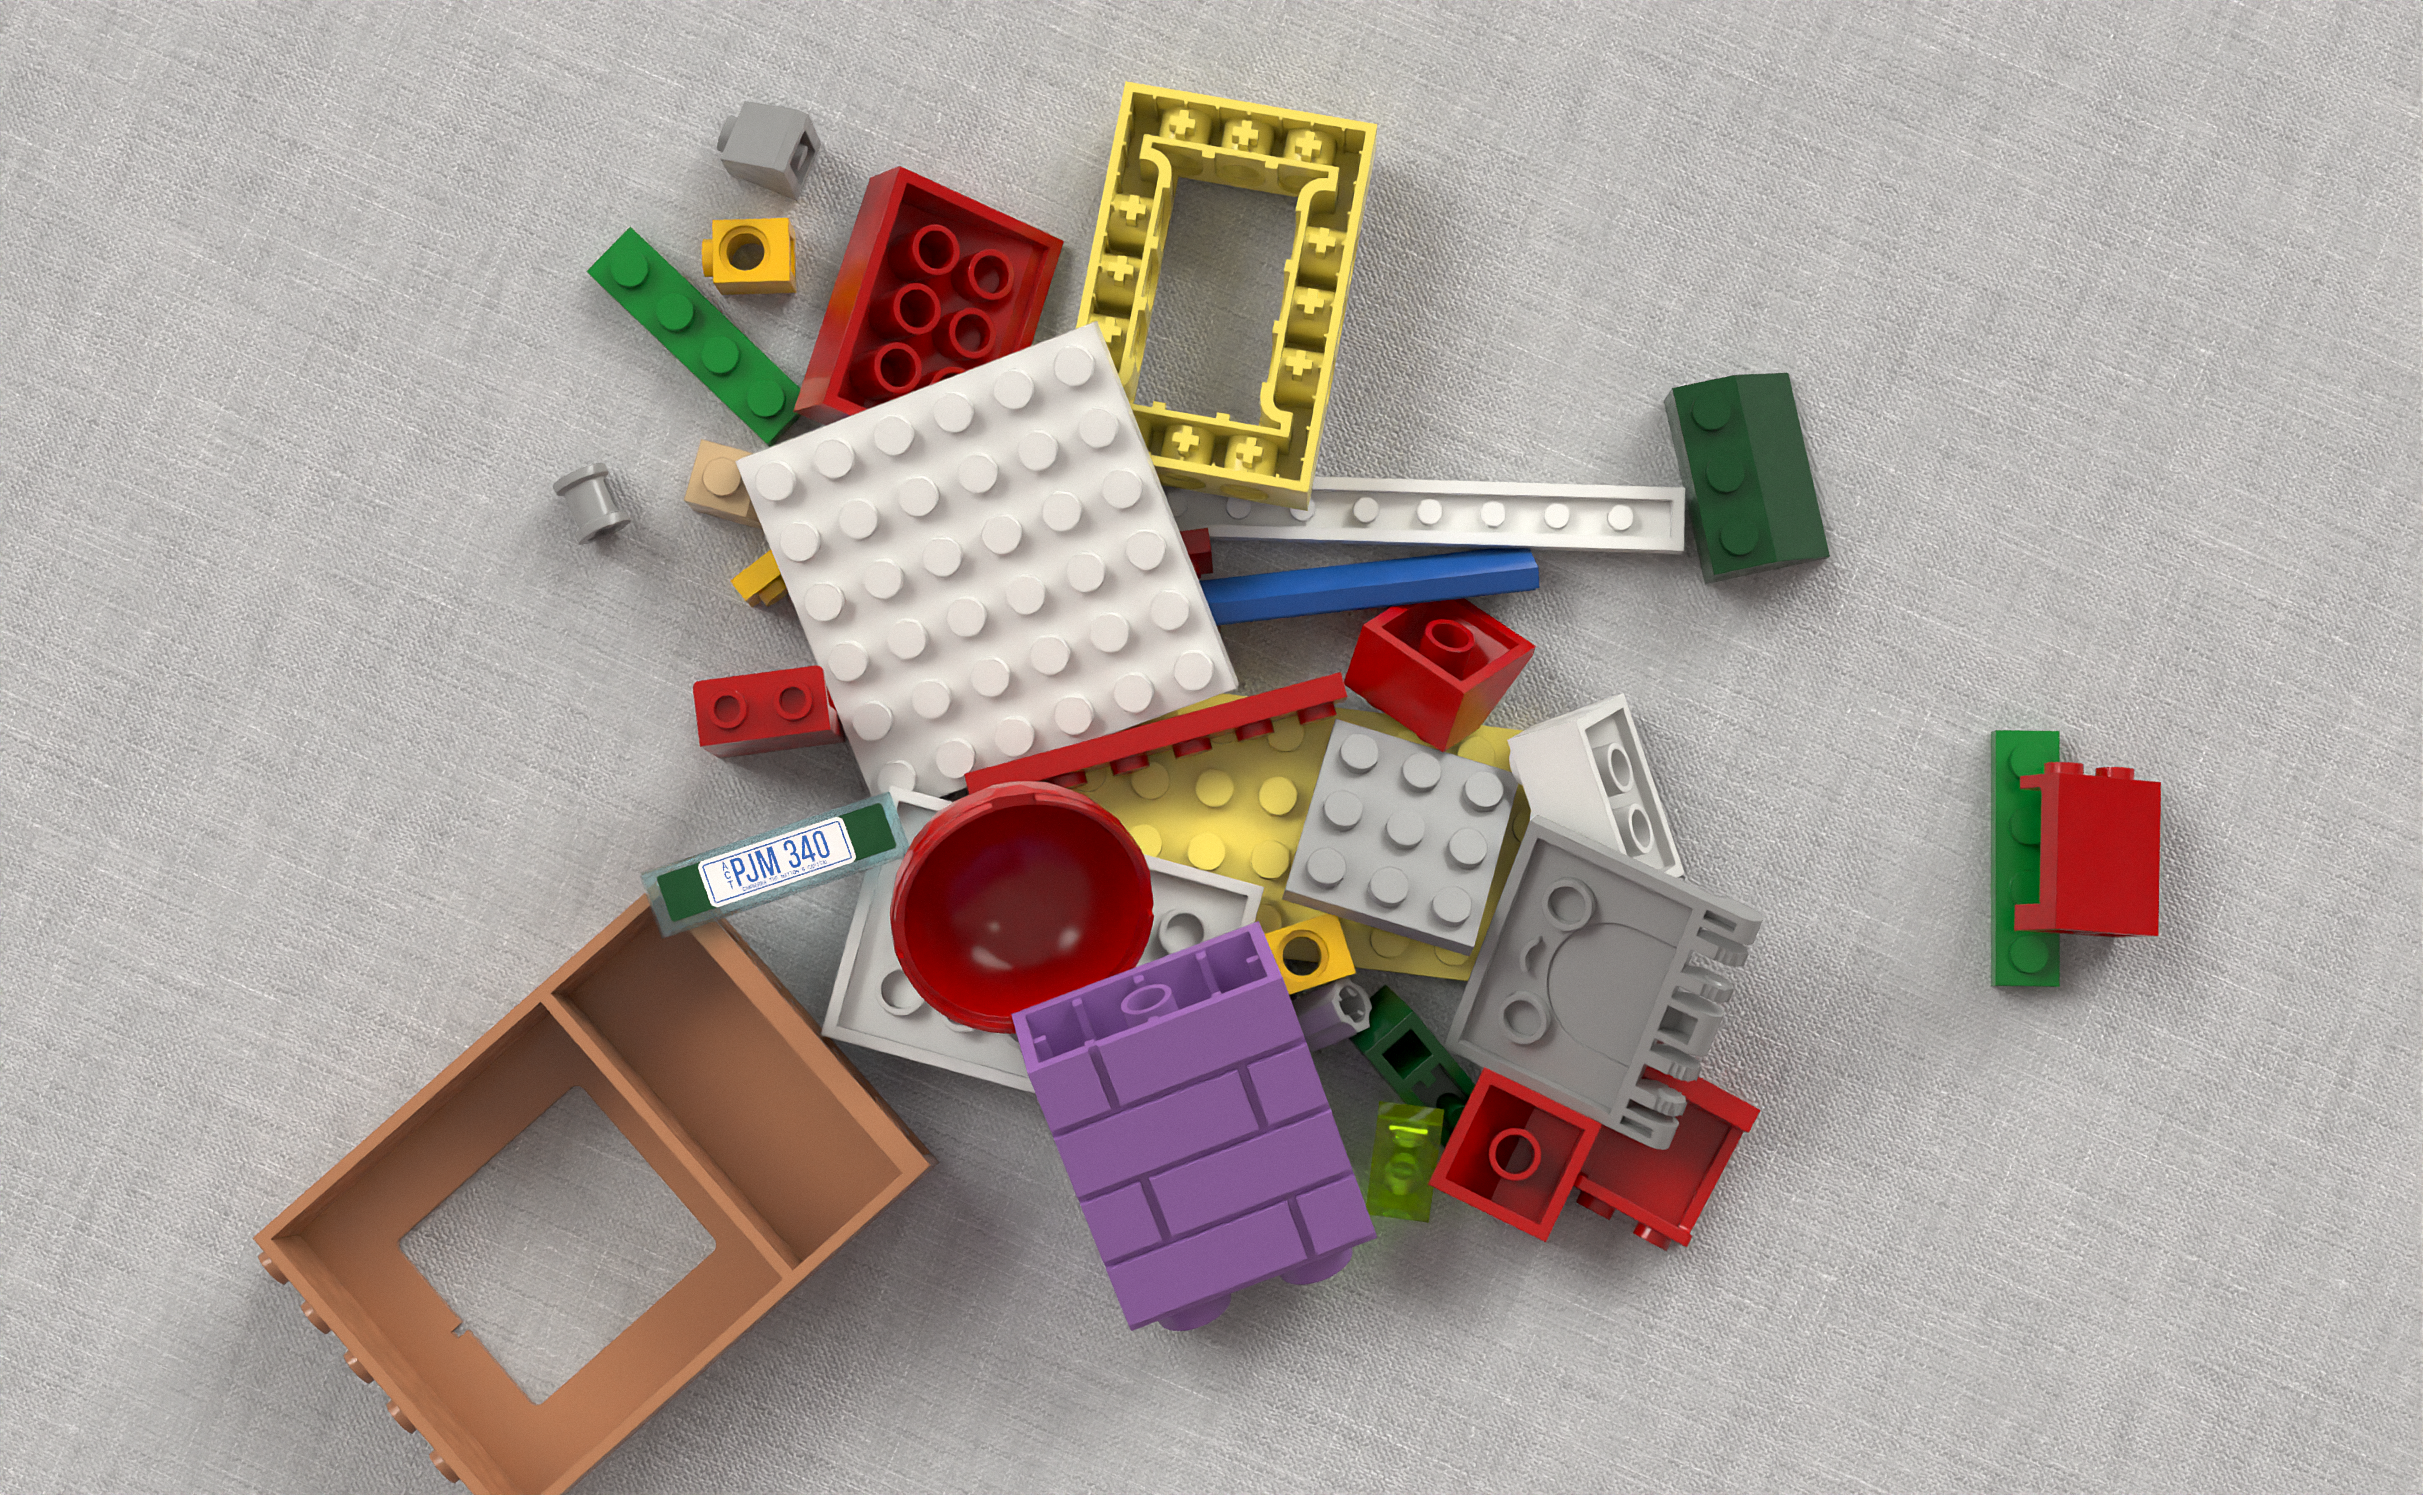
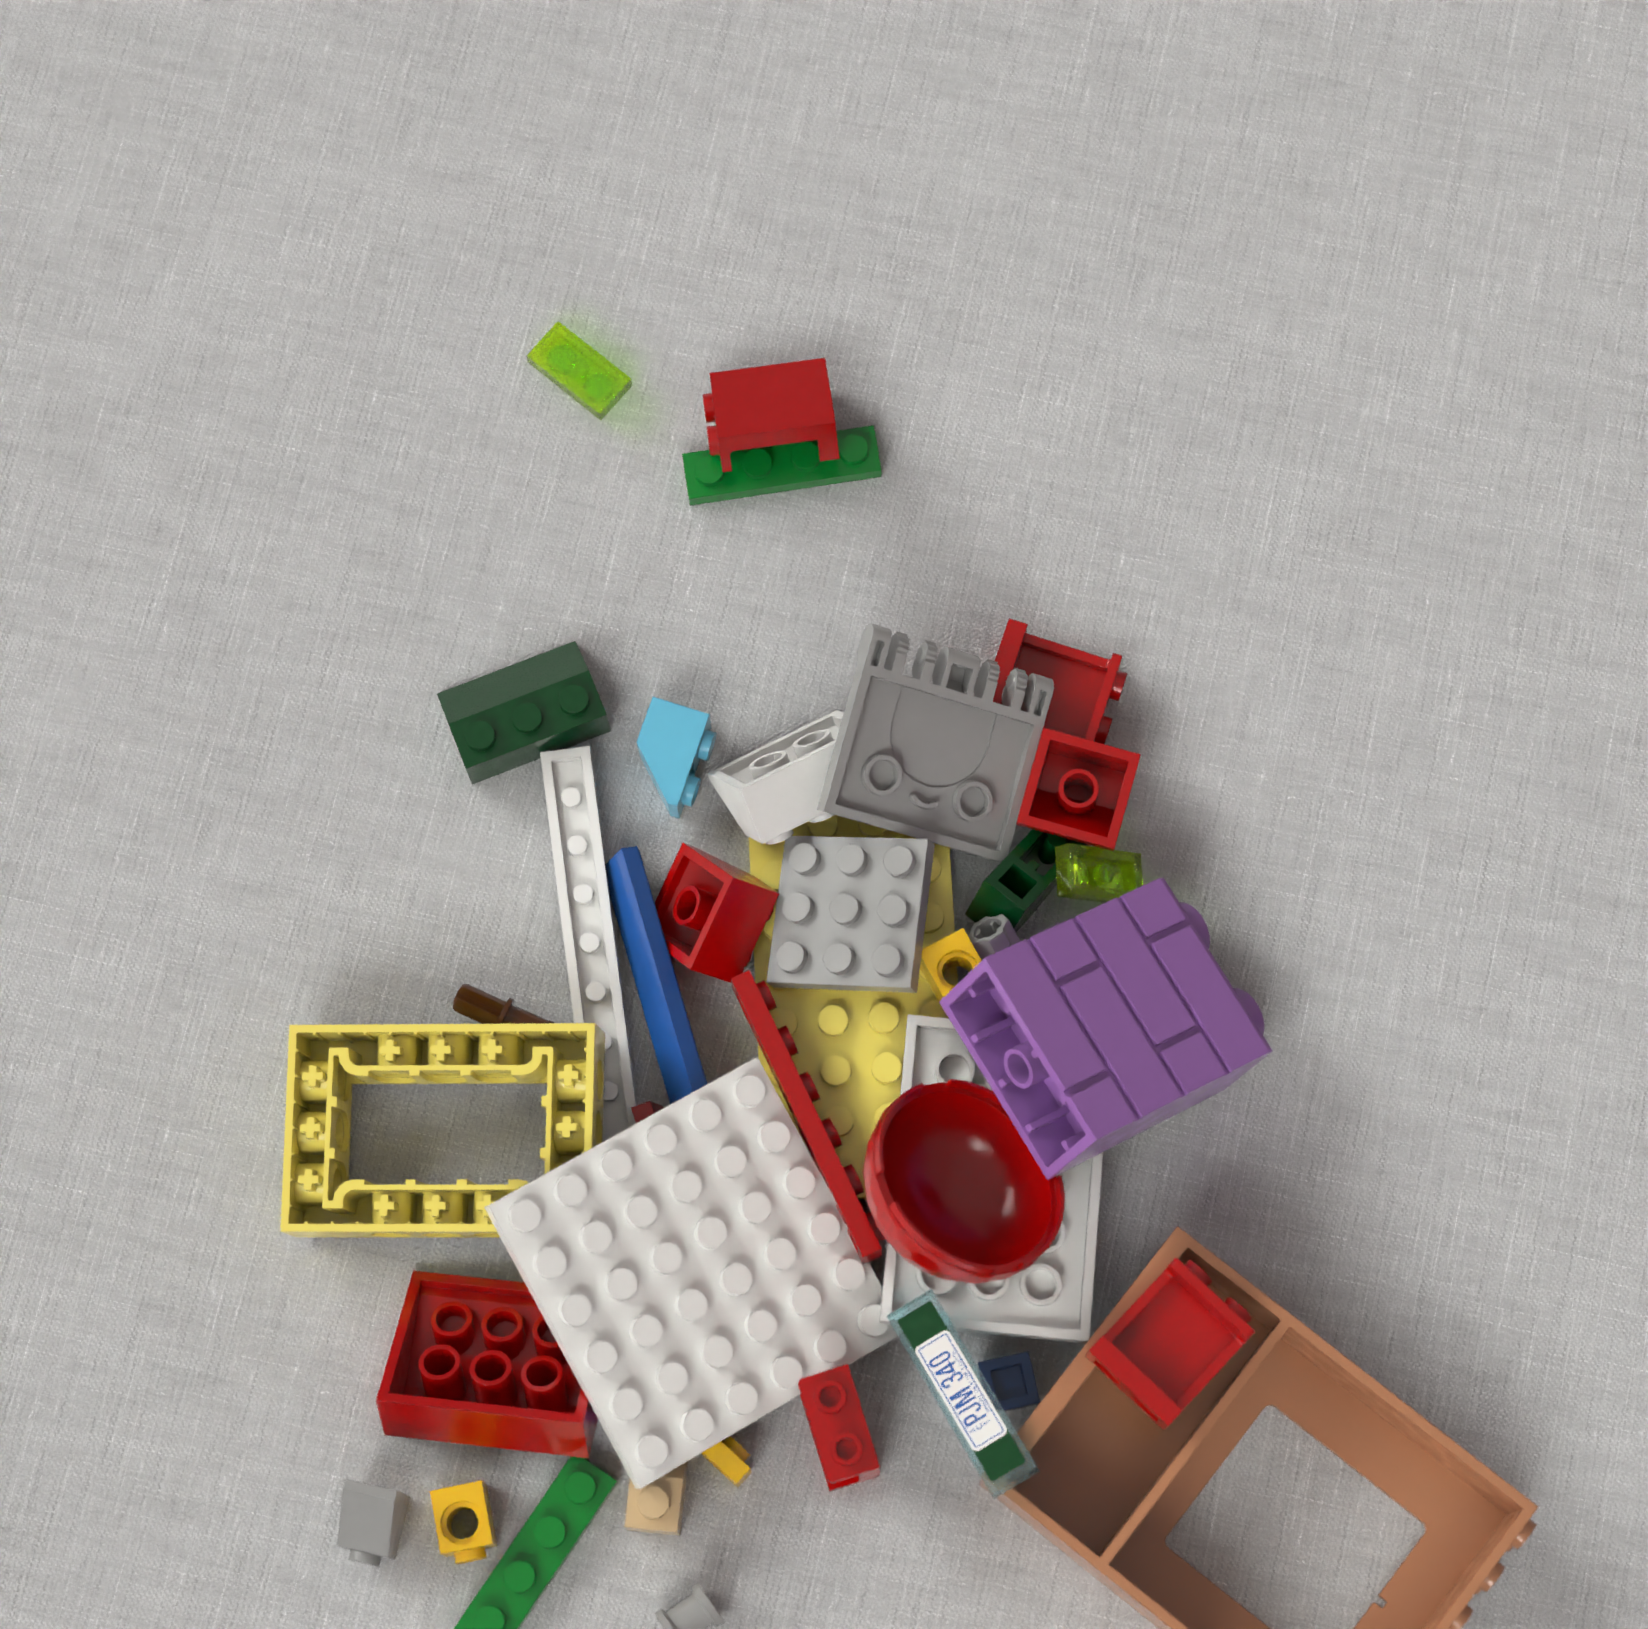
camera: 100 degrees left, 10 degrees down
(784, 1126) = (1171, 1342): none -> red panel
(797, 931) = (1011, 1380): none -> dark blue plate
(1358, 388) = (490, 1009): none -> reddish brown axle
(1660, 652) = (671, 749): none -> medium azure slope
(2195, 617) = (579, 370): none -> clear neon green plate

